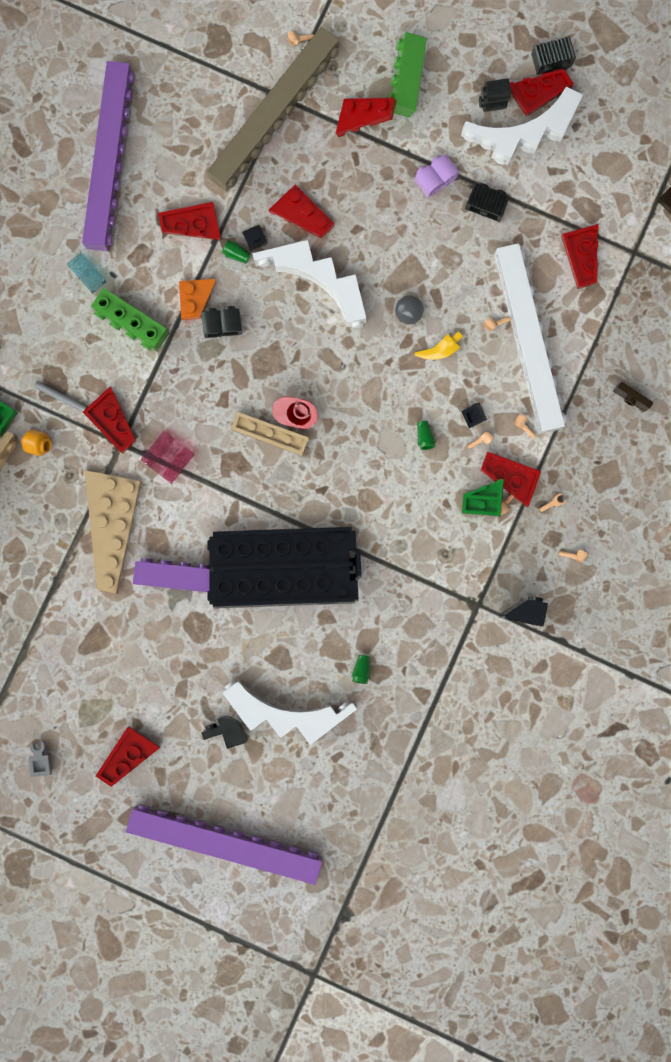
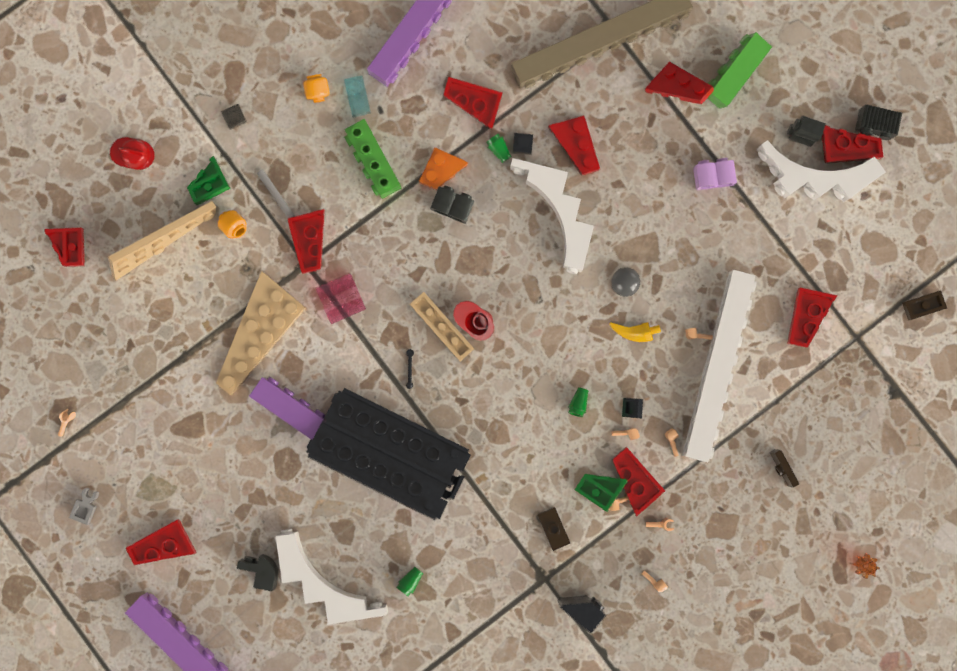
camera: 25 degrees right, 0 degrees up
(46, 284) = (316, 88): none -> light orange head
(254, 472) = (410, 353): none -> black hinge
(462, 557) = (553, 528): none -> dark brown plate
(487, 201) = (748, 222): pearl dark grey brick -> none

